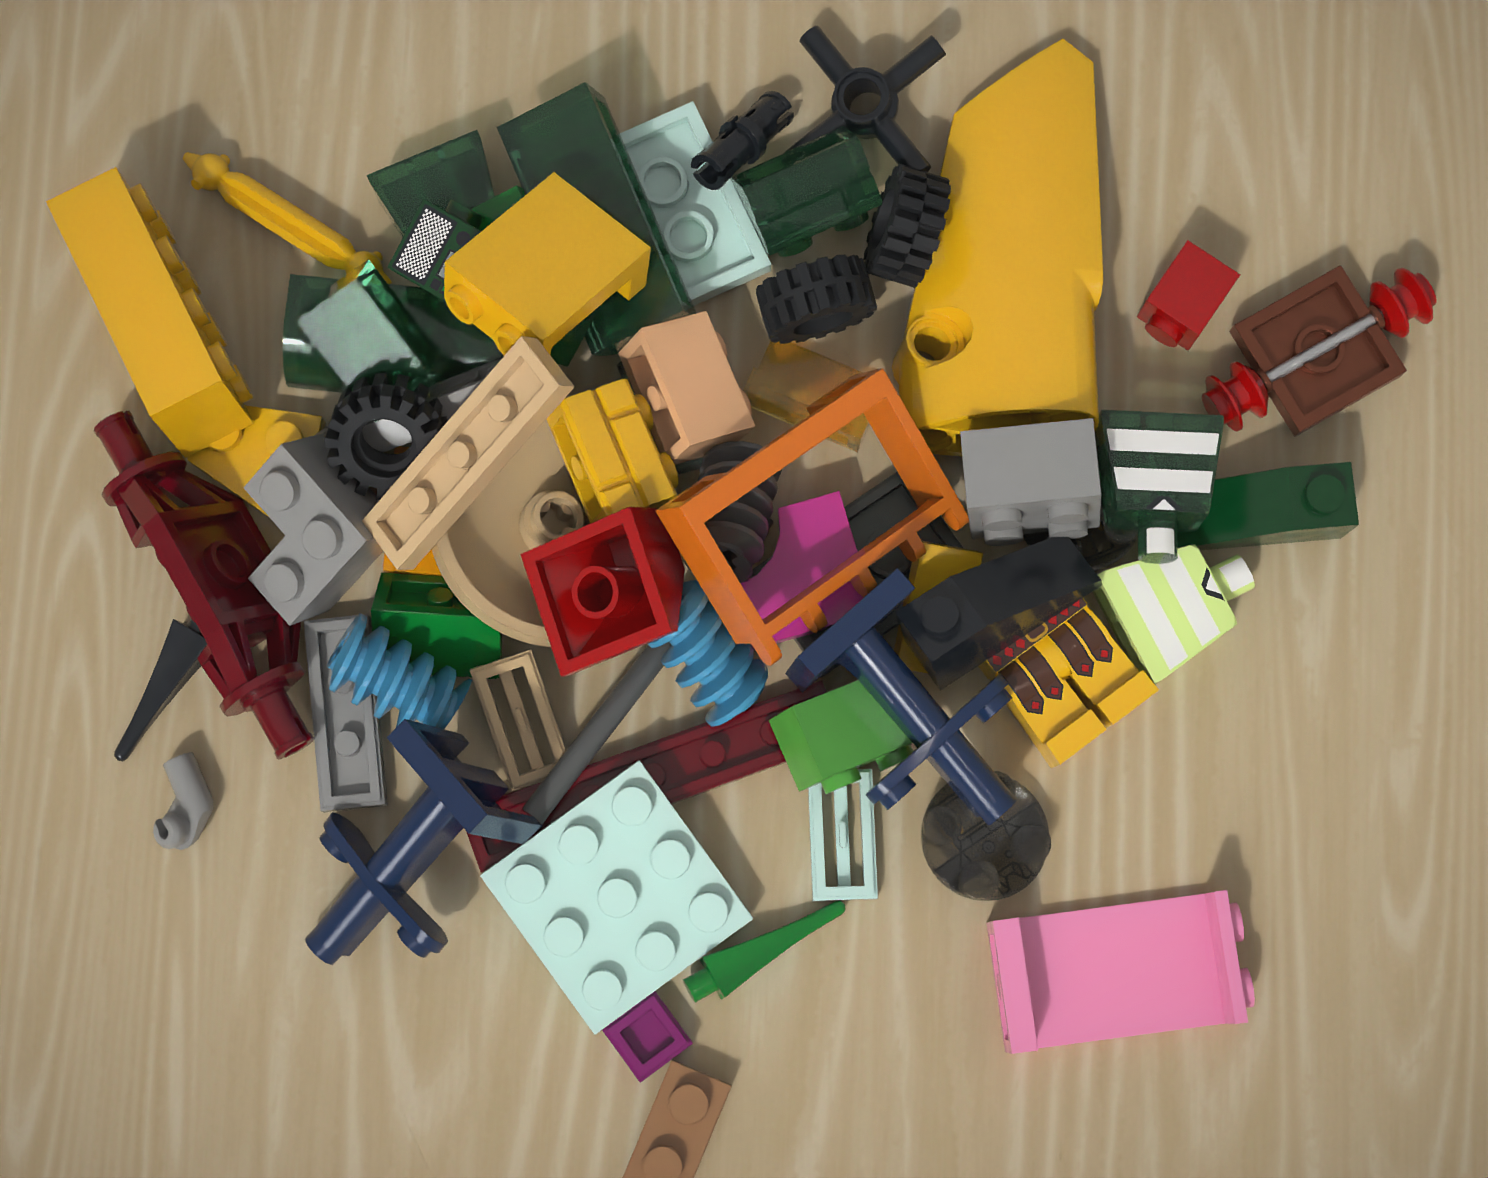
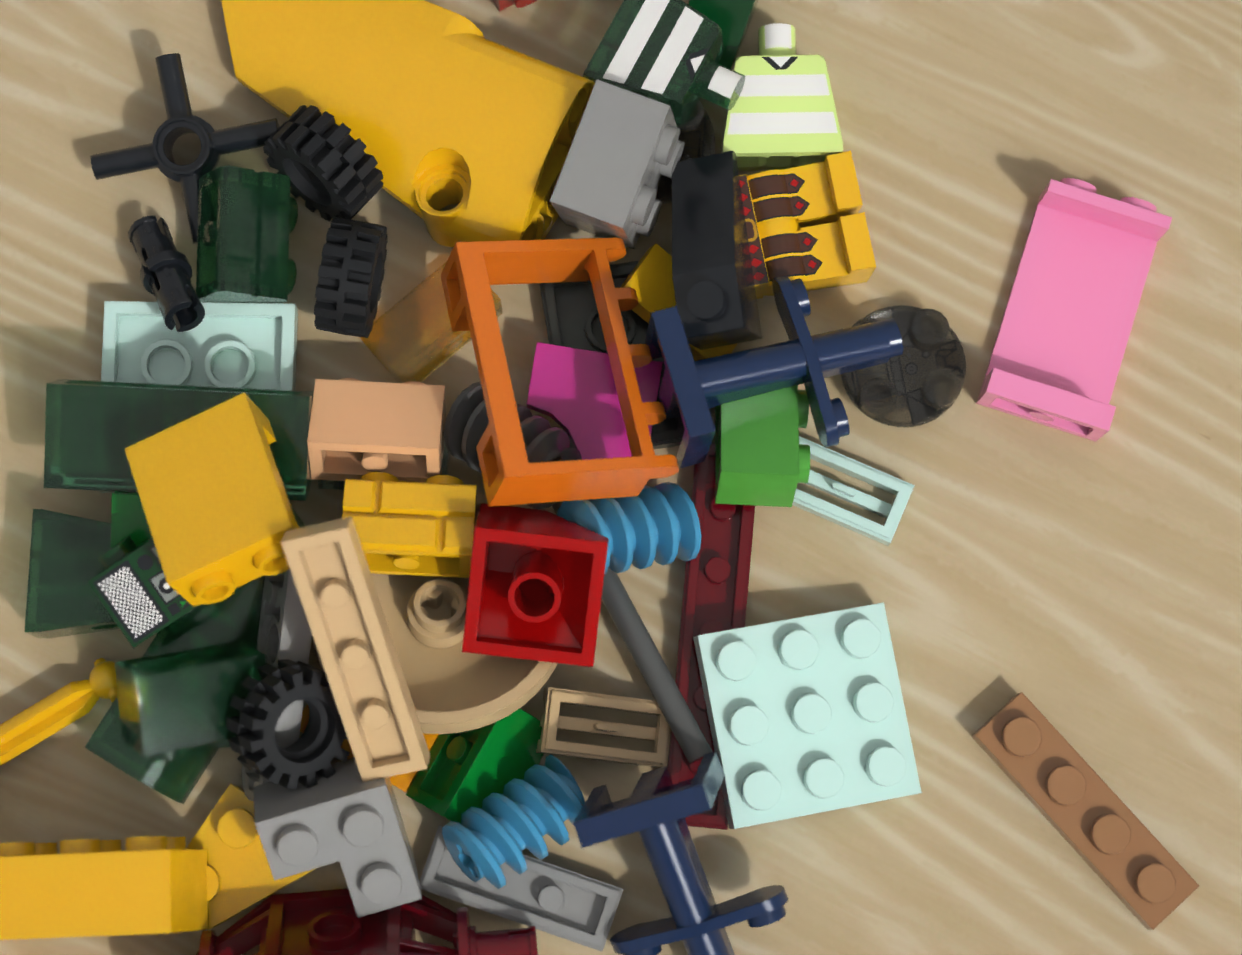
camera: 70 degrees left, 0 degrees up
(647, 1036) = (944, 747): magenta tile -> none
(736, 964) = (916, 637): green piece -> none

